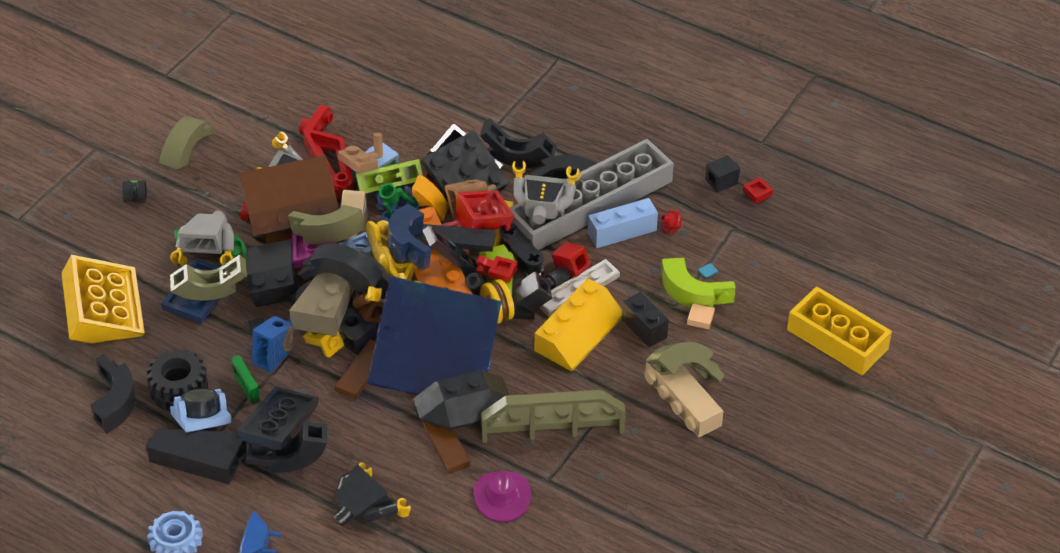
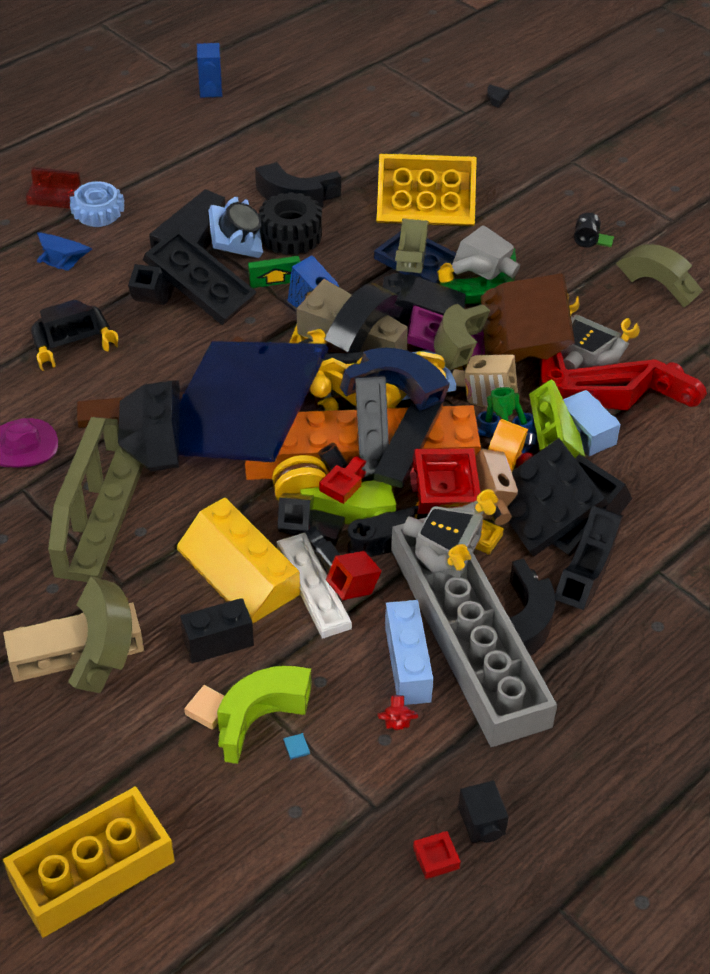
camera: 105 degrees right, 0 degrees up
(360, 160) = (578, 385): medium nougat plate -> none

